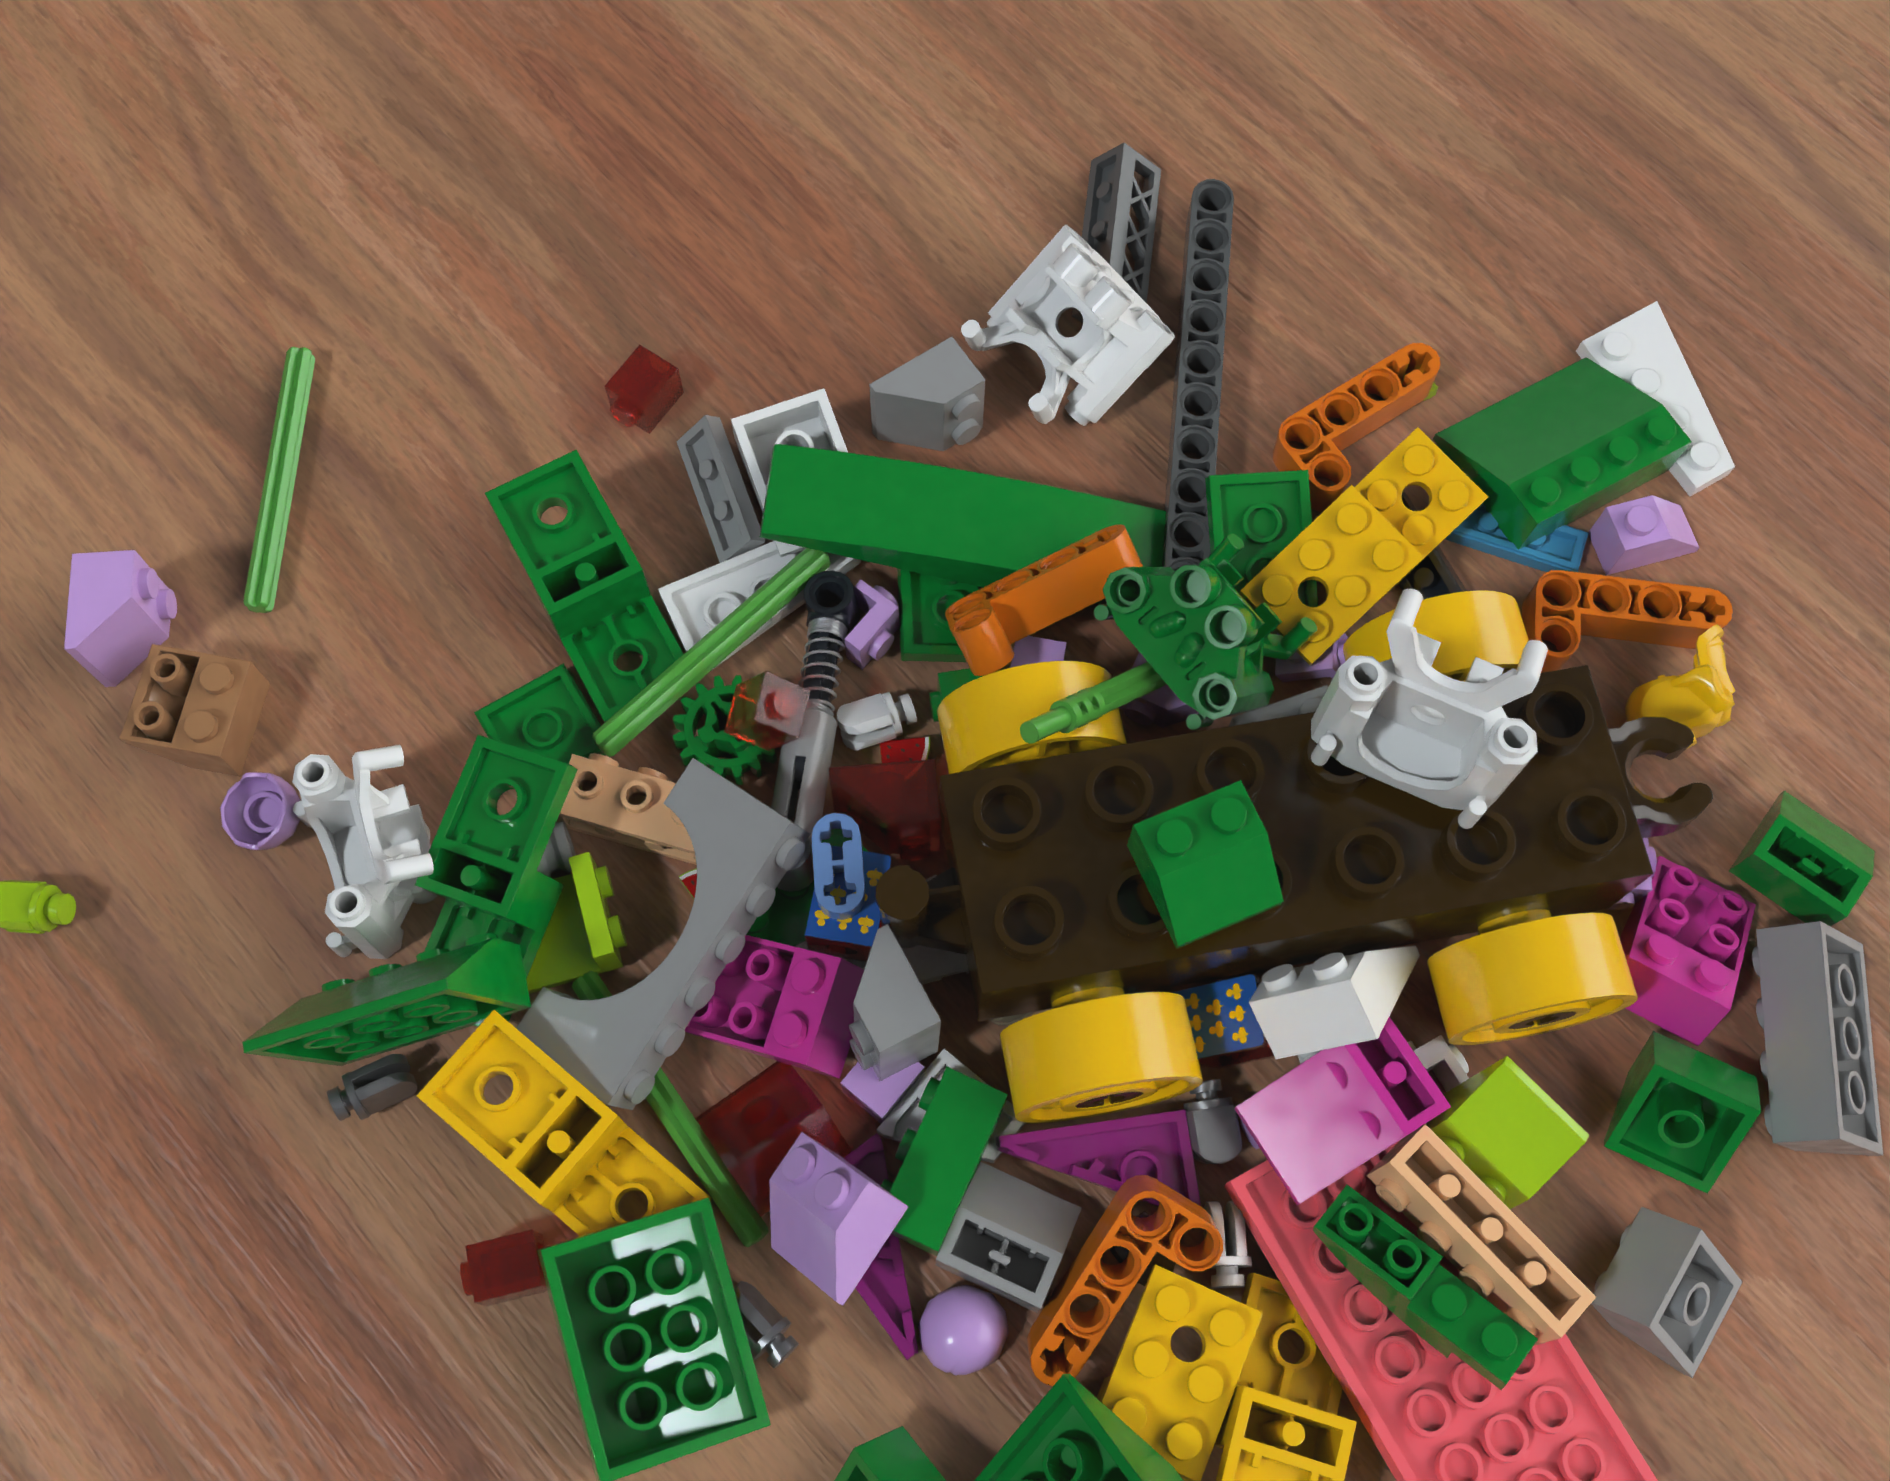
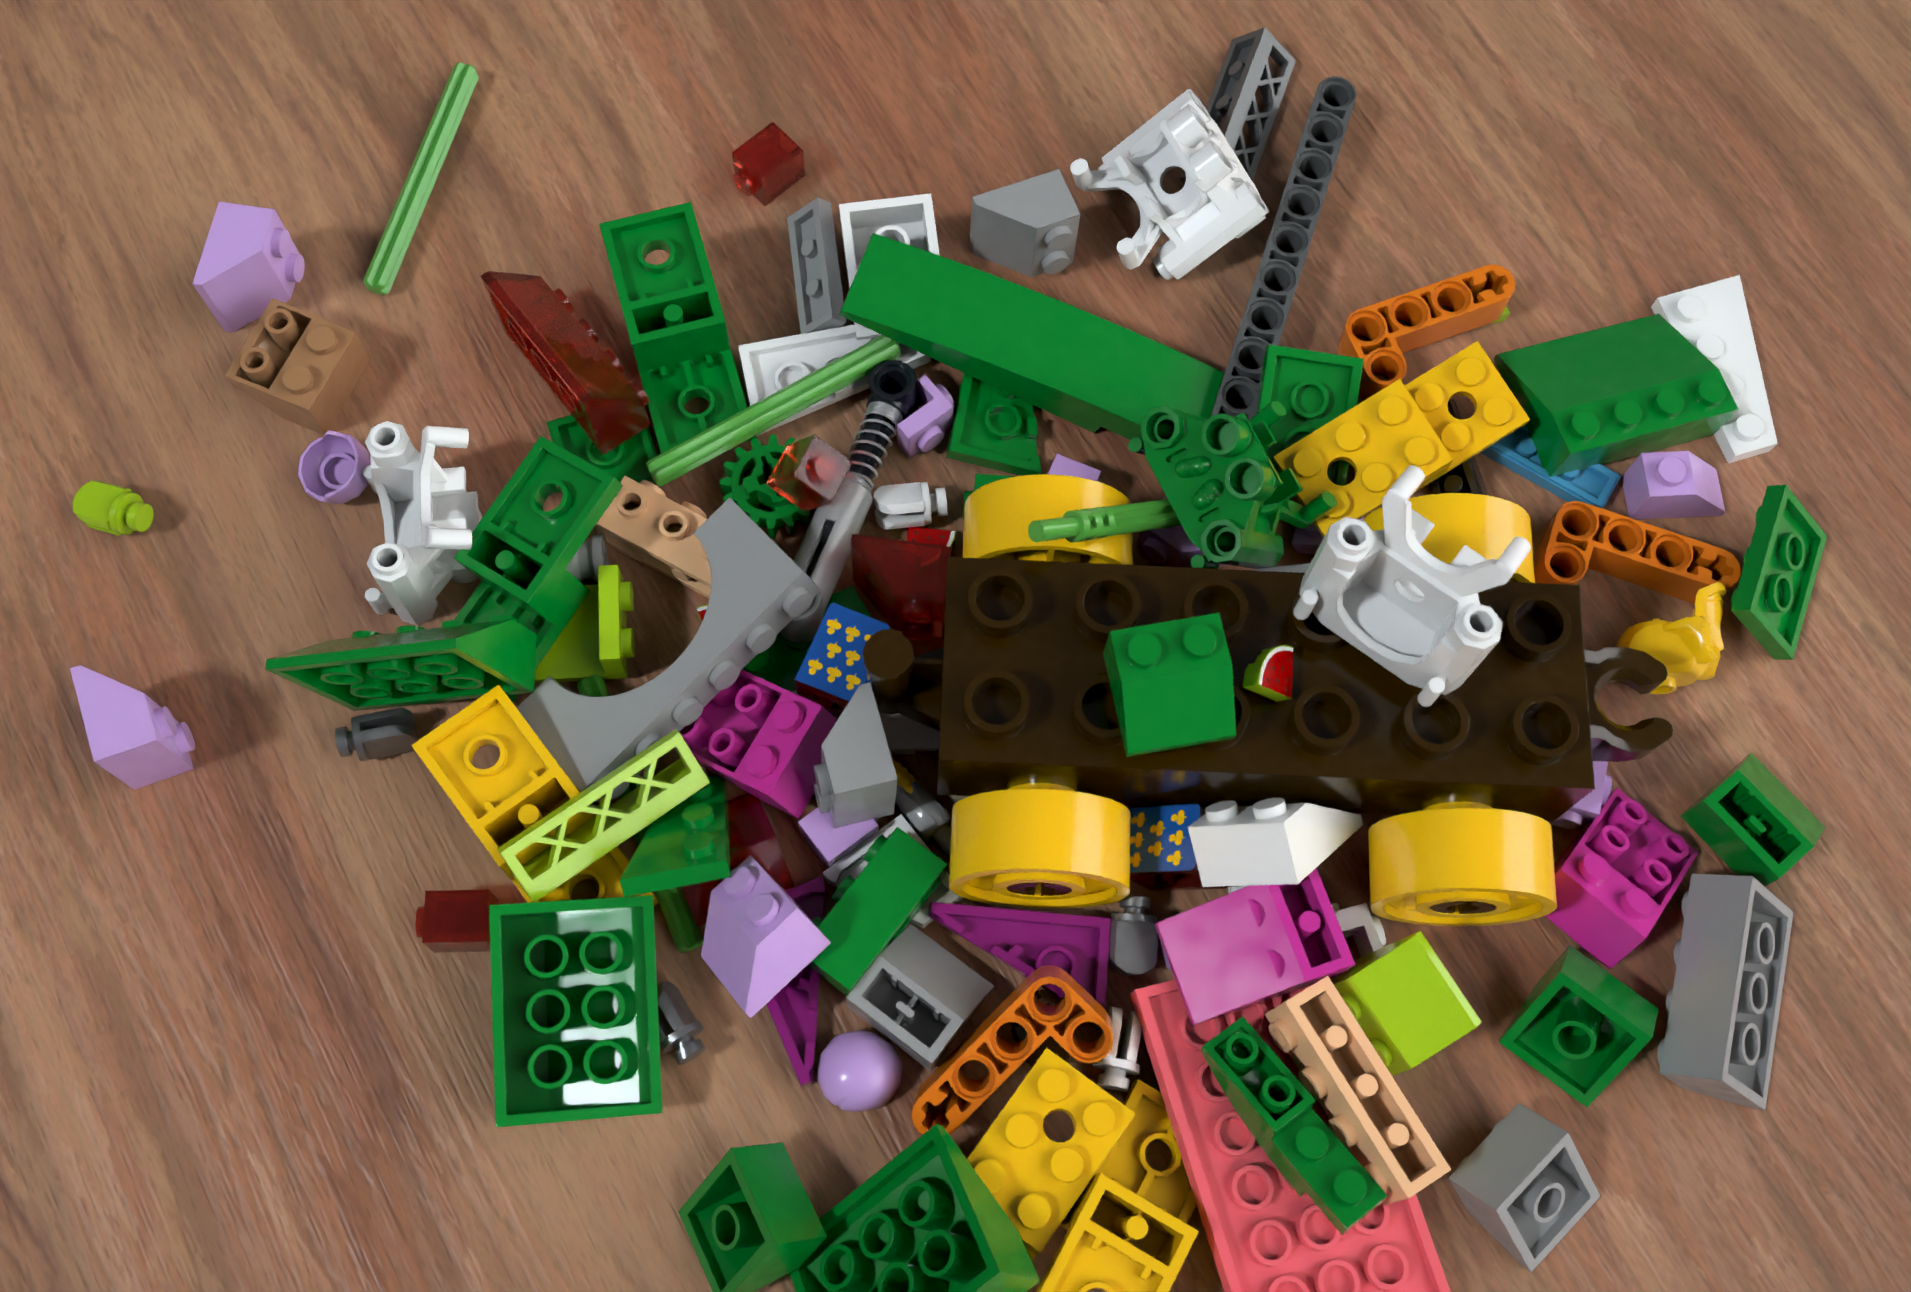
camera: 10 degrees right, 0 degrees up
(107, 1146) = (131, 731): none -> lavender slope
(483, 641) = (568, 358): none -> clear red slope
(644, 1131) = (611, 824): none -> lime fence
(727, 1130) = (683, 844): none -> green wing
(825, 866) = (828, 621): medium blue beam -> none
(968, 1041) = (922, 809): none -> light grey piece
(1036, 597) = (1081, 422): orange beam -> none
(1302, 827) = (1271, 673): none -> tile
(1769, 600) = (1779, 572): none -> green plate

